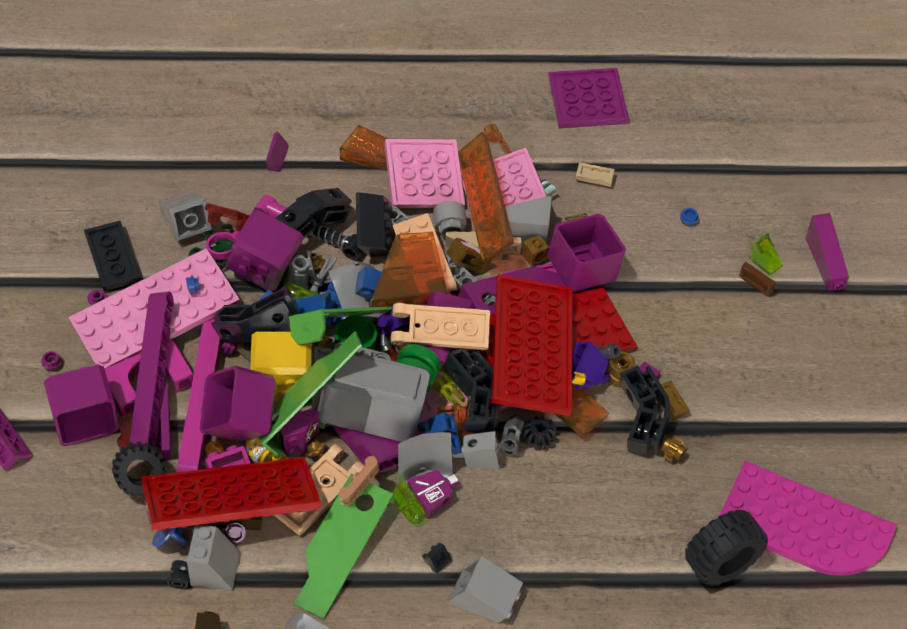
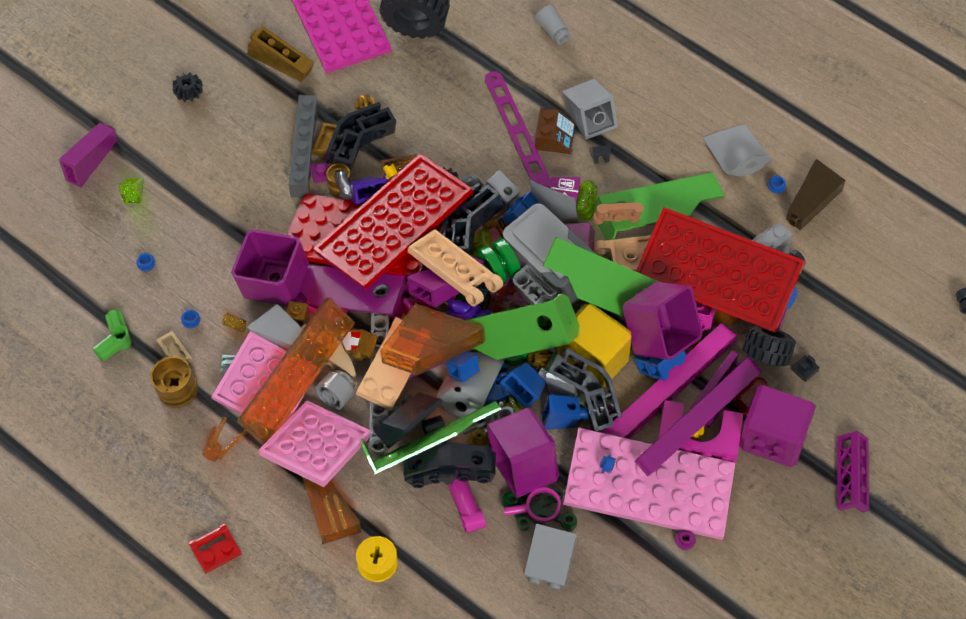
camera: 135 degrees left, 5 degrees up
(51, 356) = (766, 502): magenta plate -> none
(99, 492) = (805, 368): none -> black tile
(112, 255) = (642, 572): black plate -> none
(216, 212) = (509, 513): clear red piece -> none
(277, 153) = (413, 574): magenta slope -> none
(309, 143) = (386, 563): none -> yellow piece
(338, 213) = (428, 440): none -> bright green piece
(420, 84) = (218, 553): none -> red plate
(463, 494) = (542, 177): none -> magenta piece
(495, 543) = (554, 132): none -> reddish brown slope
(565, 146) = (174, 382): none -> pearl gold wheel
(588, 98) = (93, 430): magenta tile -> none
(610, 202) = (190, 319): none -> blue plate
(643, 157) = (112, 344): none -> bright green piece
(703, 397) = (302, 146): none -> dark grey arch
(757, 279) = (161, 176): reddish brown tile -> none
(792, 437) = (279, 54): none -> pearl gold slope
(828, 360) = (187, 87): none -> black gear

